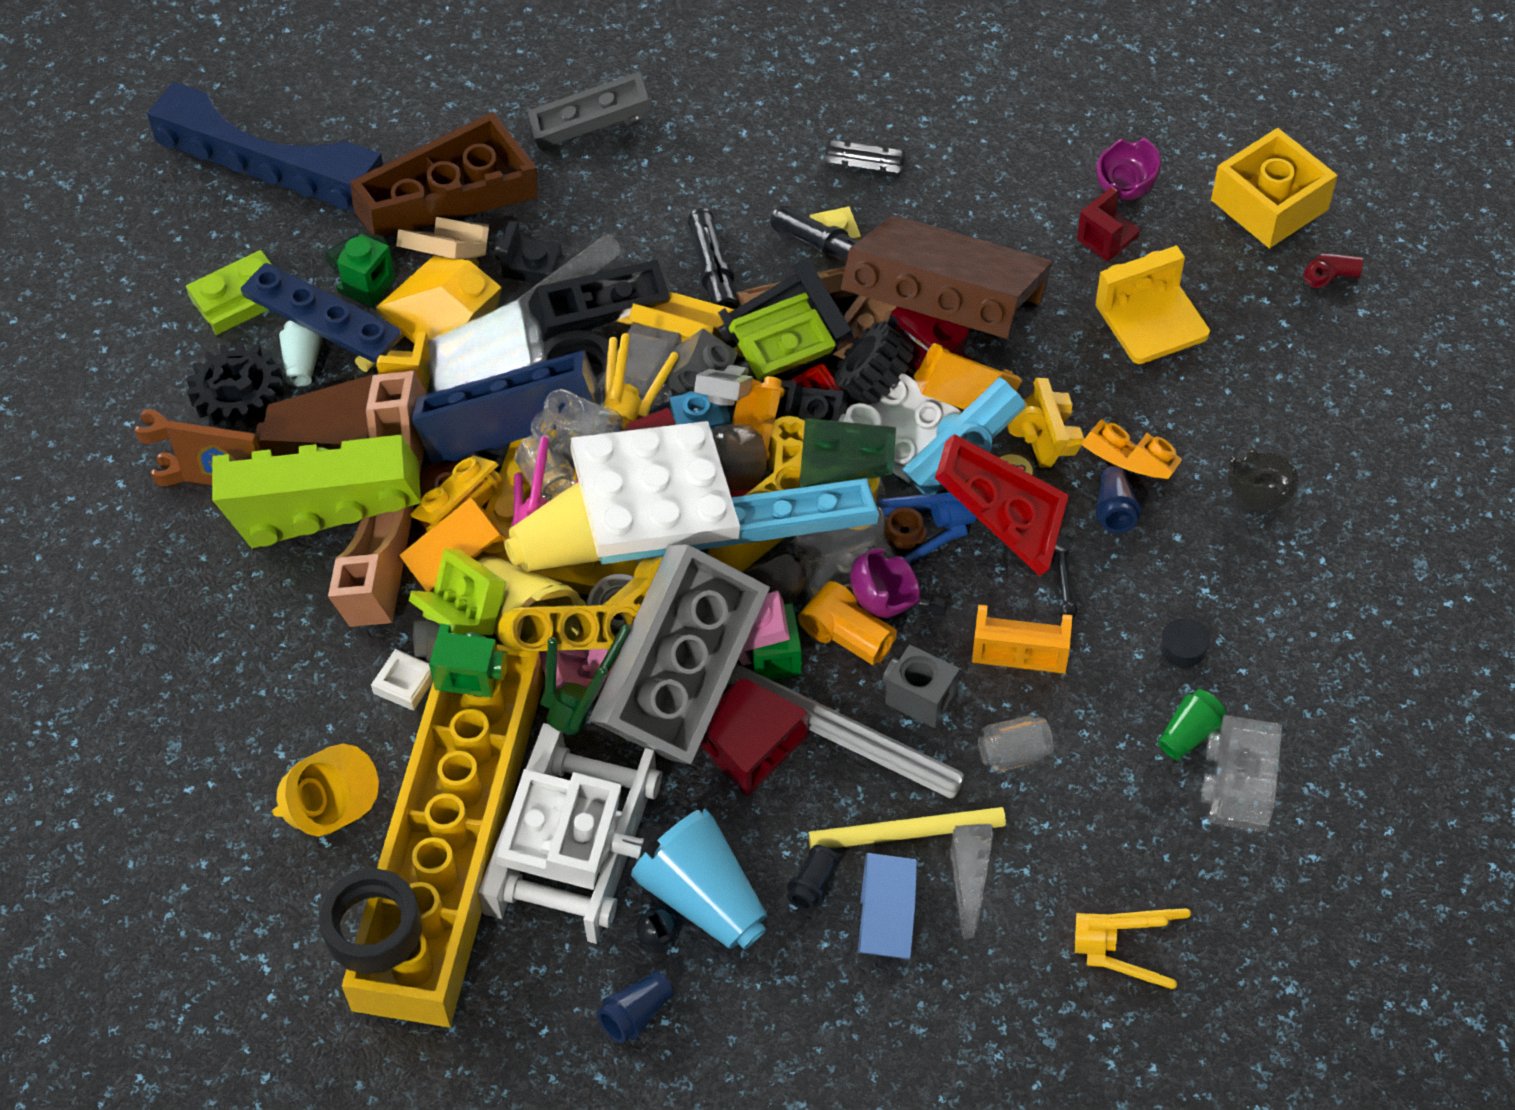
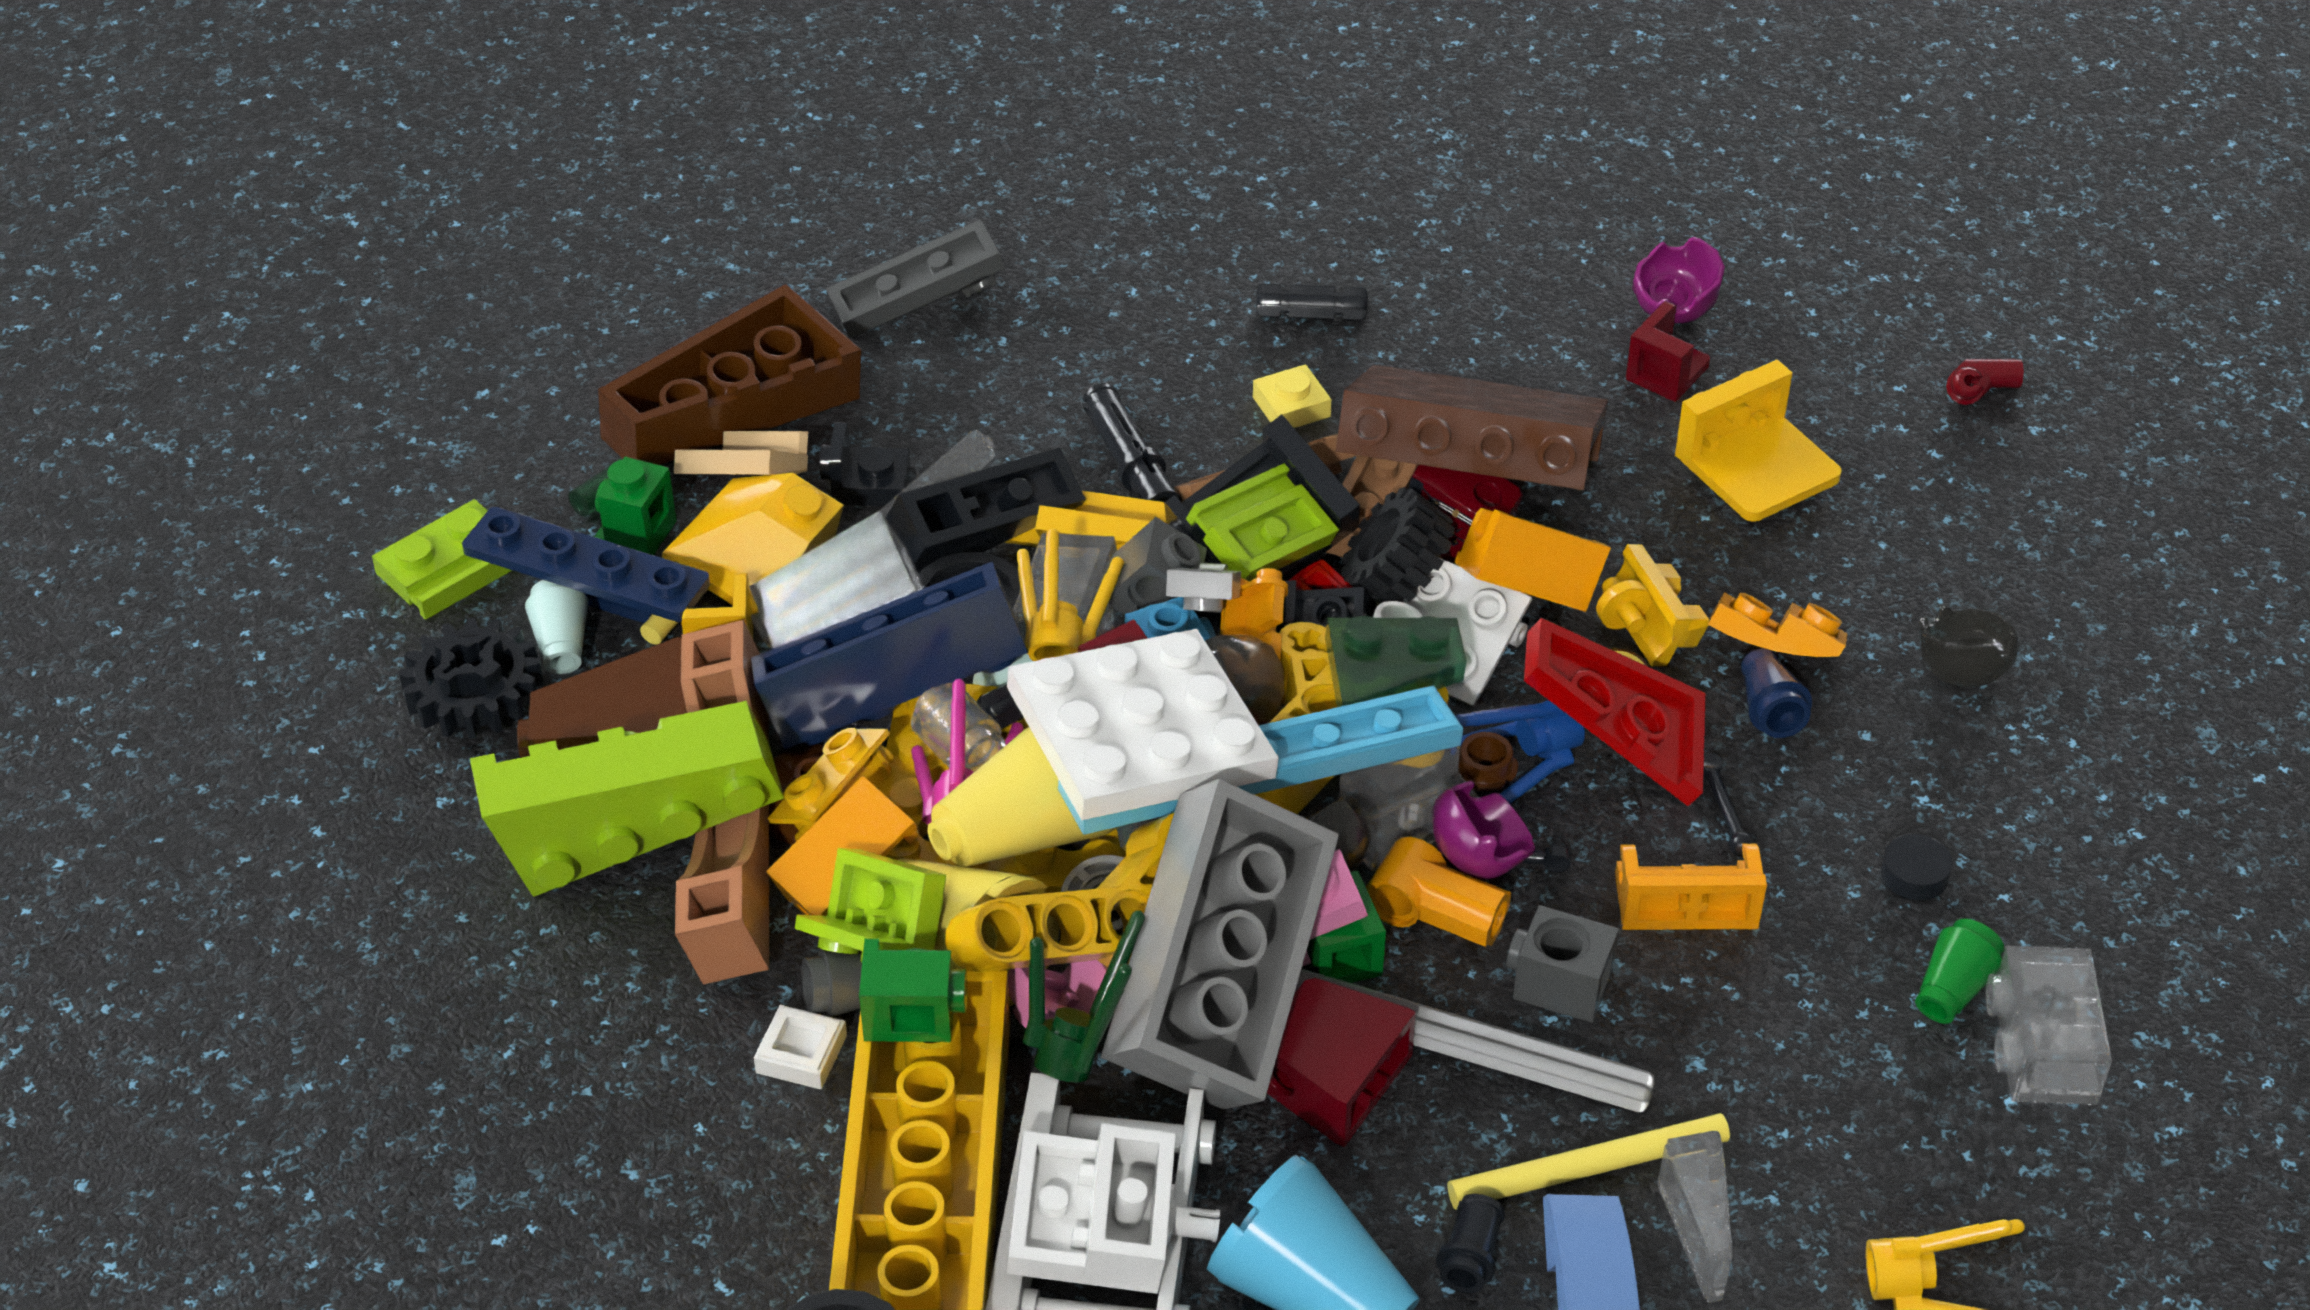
camera: 10 degrees left, 10 degrees down
(190, 123) = (349, 350): dark blue arch -> none
(193, 448) = (433, 761): dark orange flag -> none
(327, 790) = (718, 1209): yellow piece -> none
(576, 419) = (988, 657): clear piece -> none
(830, 241) = (1298, 403): black pin -> none
(980, 422) = (1568, 601): medium azure piece -> none
(1015, 743) = (1718, 1023): clear brick -> none
(1273, 187) = (1881, 283): yellow brick -> none

